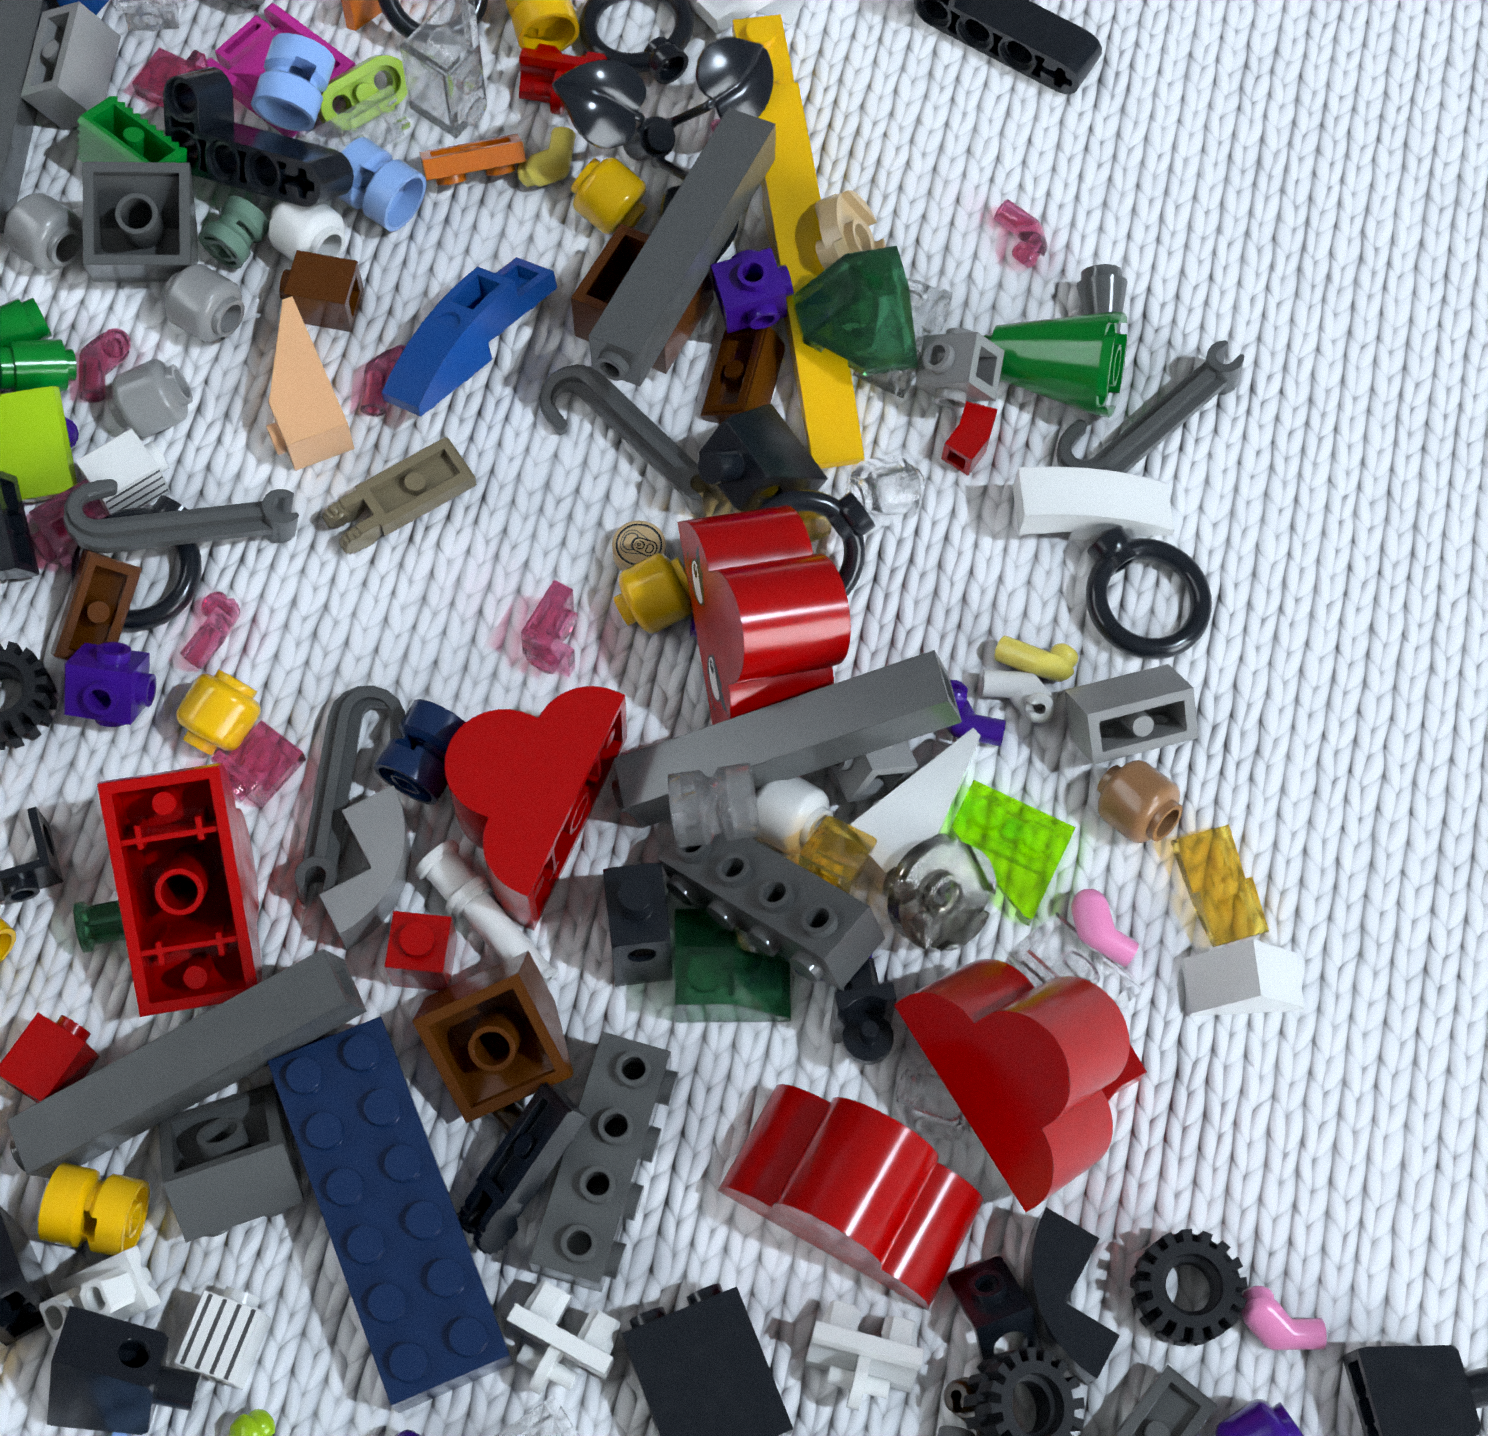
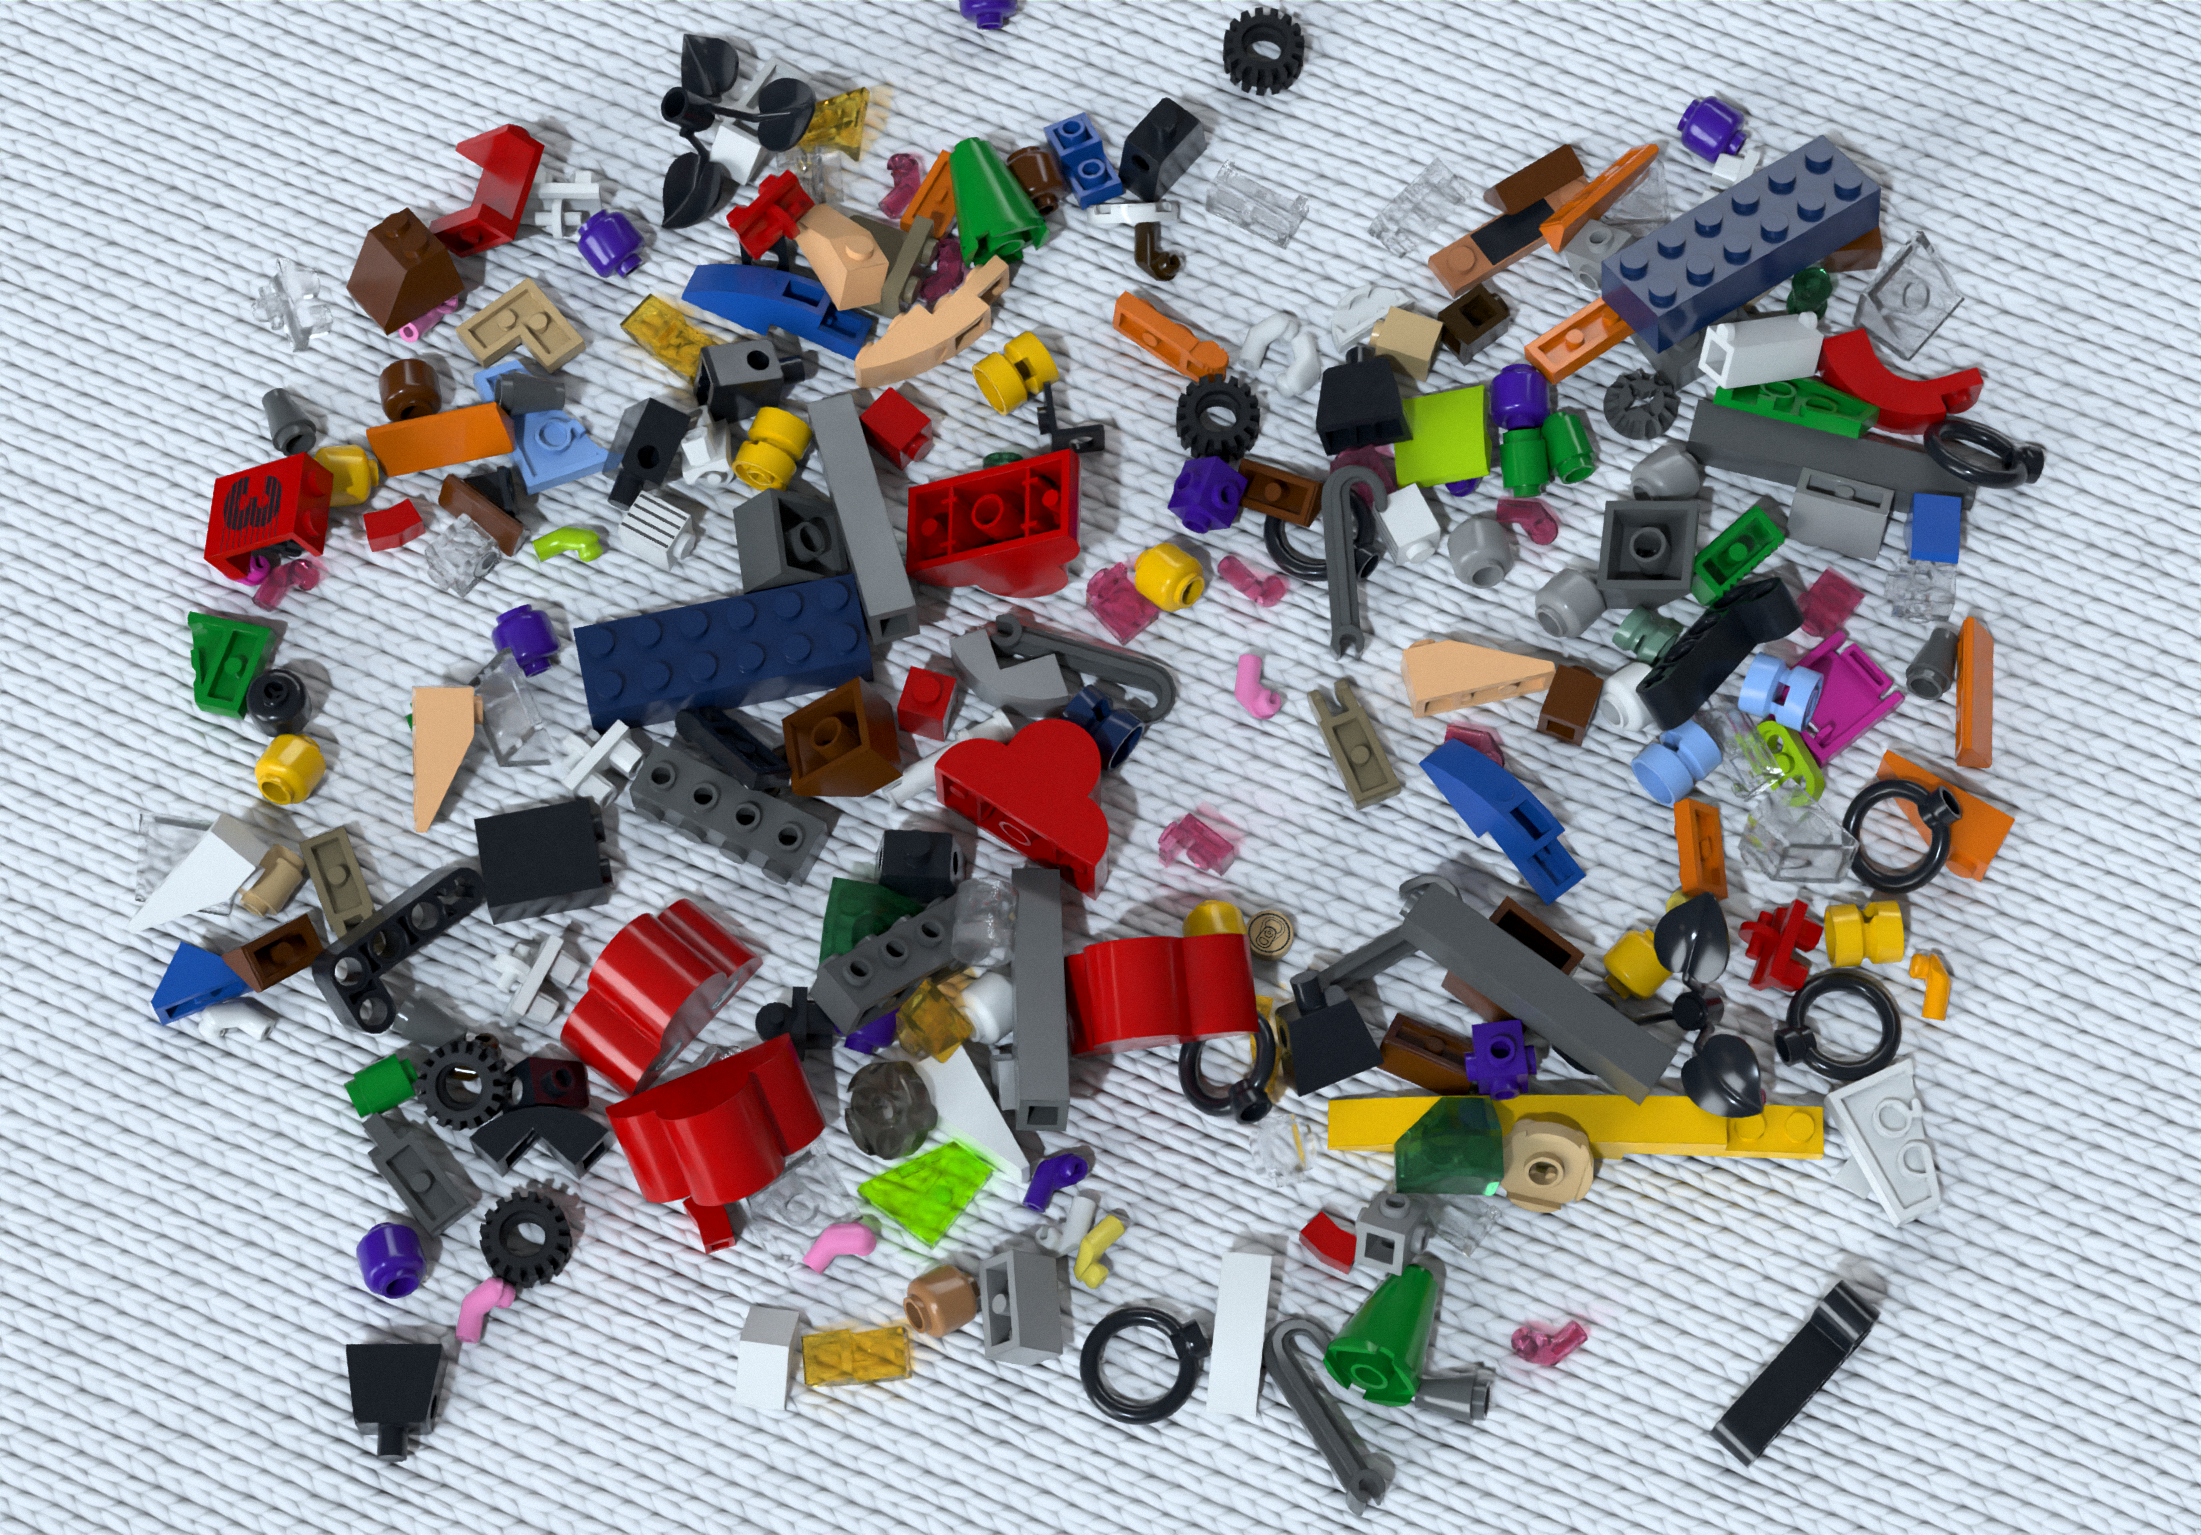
camera: 105 degrees right, 0 degrees up
(351, 609) = (1250, 693): none -> bright pink arm

